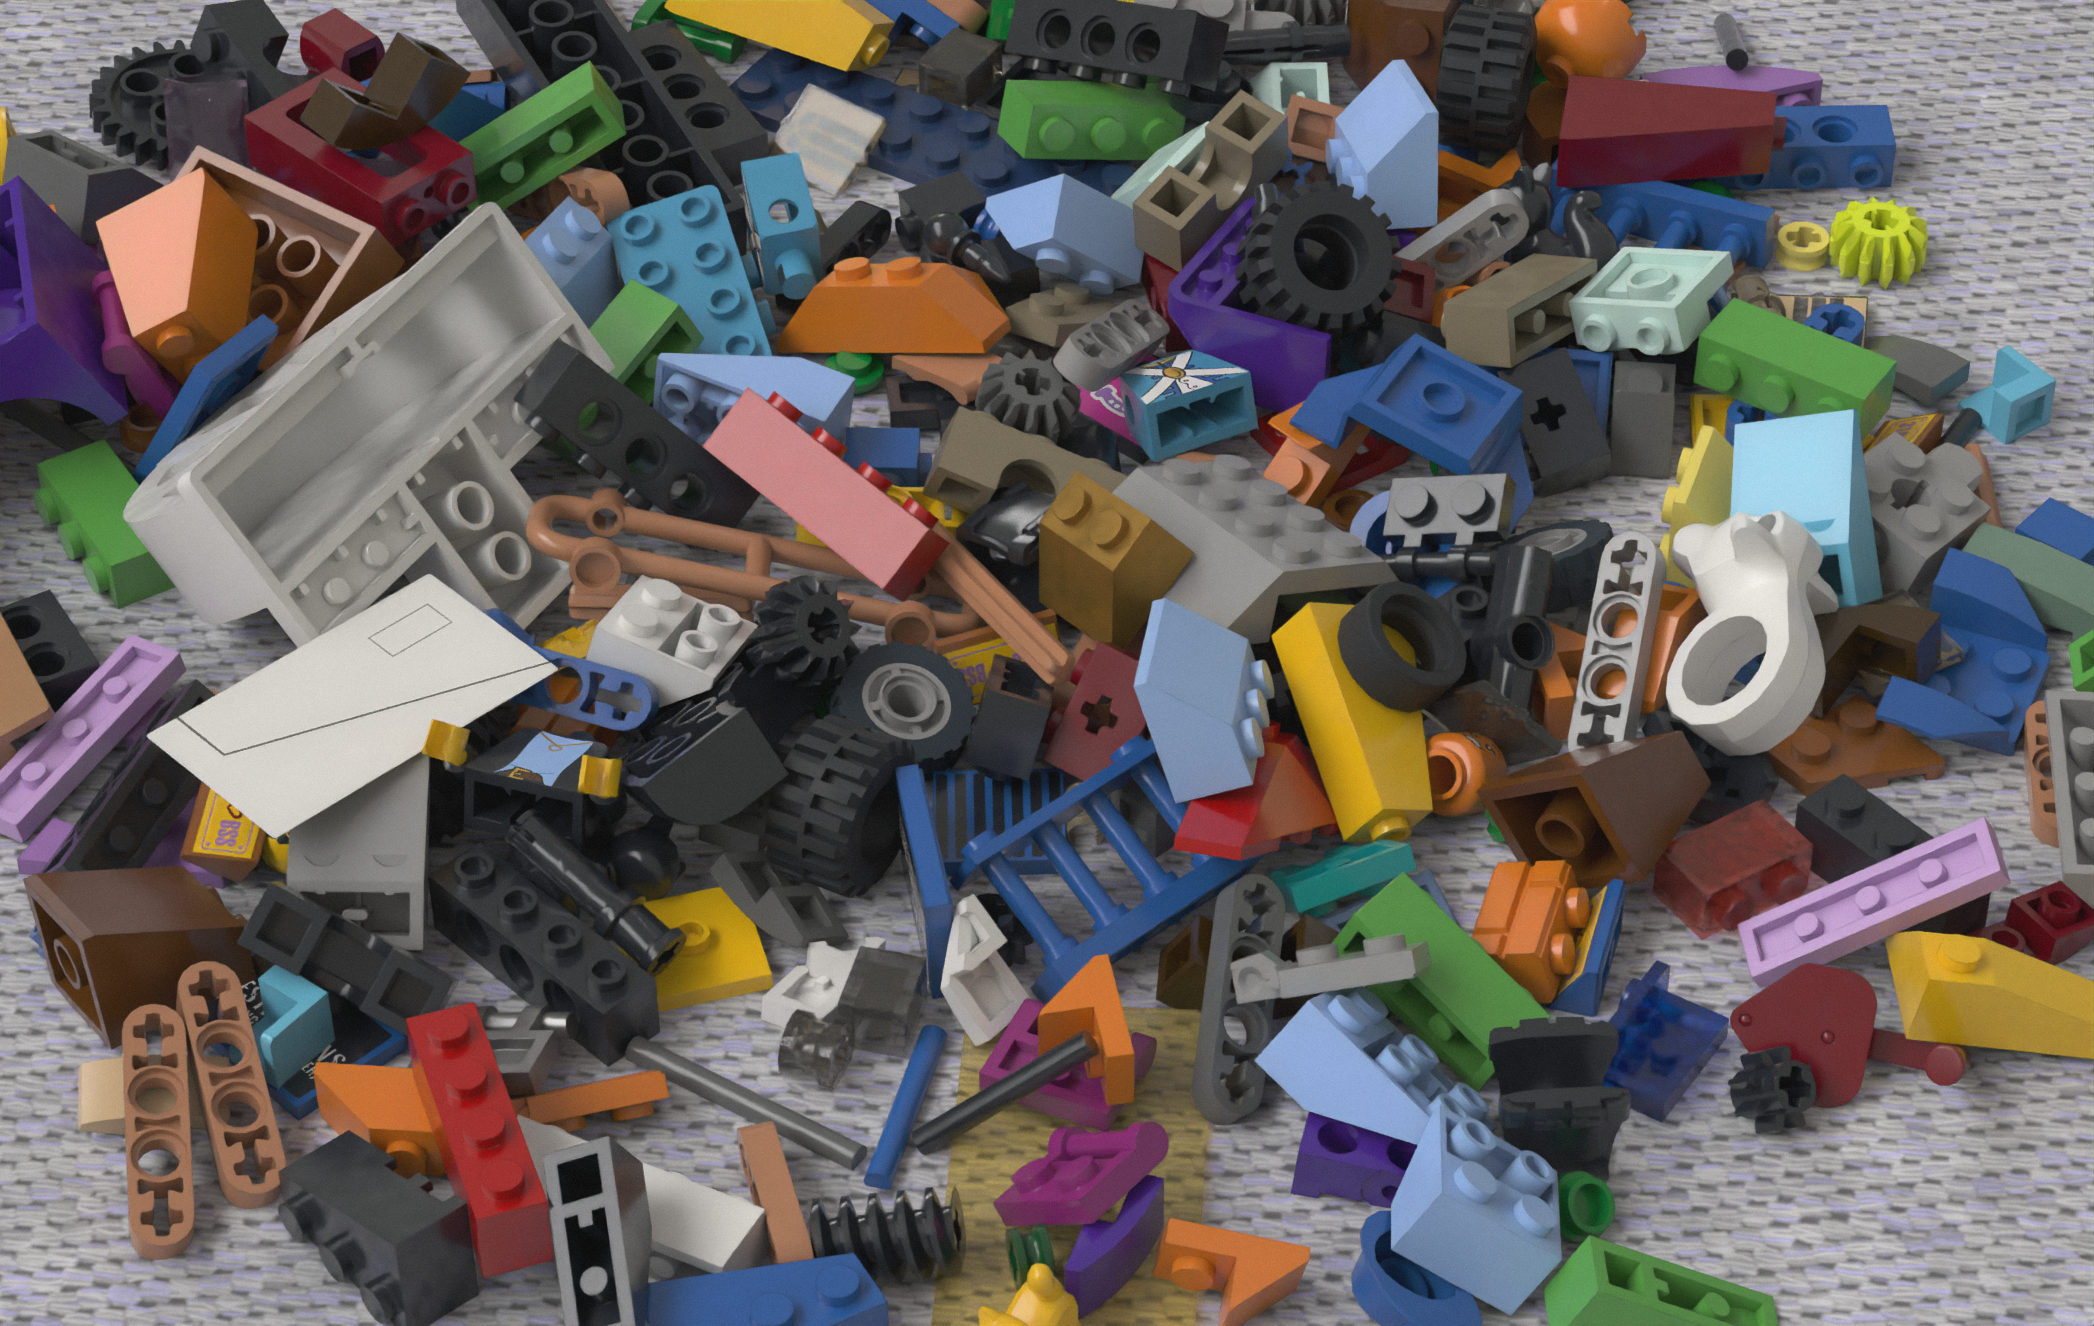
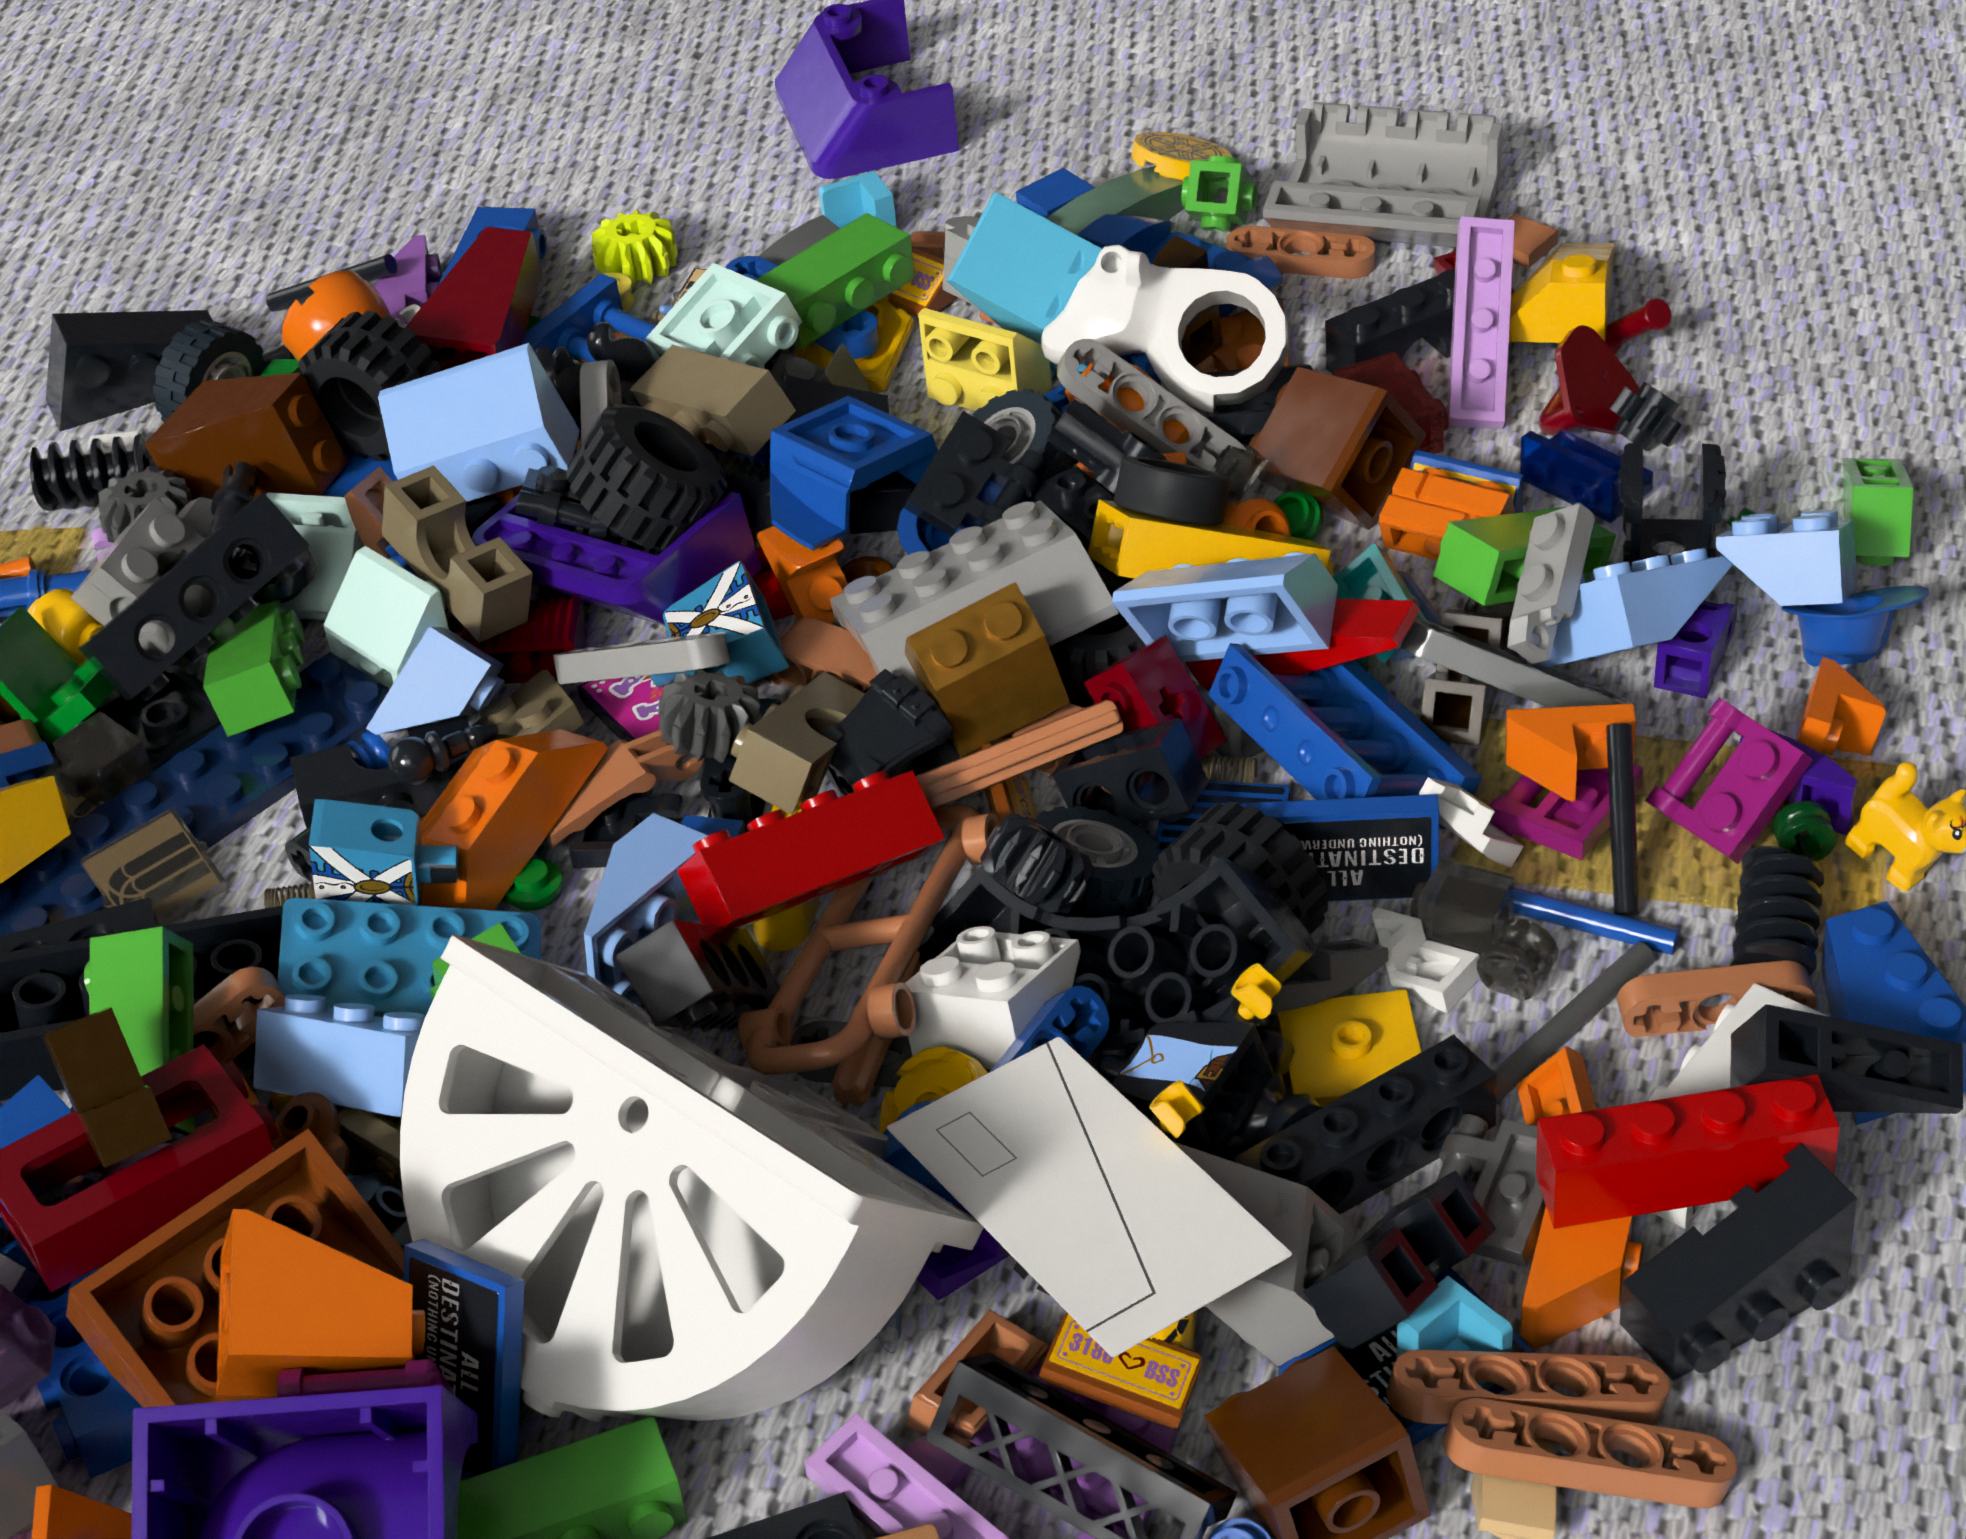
camera: 75 degrees left, 0 degrees up
(616, 912) = (1352, 1060): black pin -> none

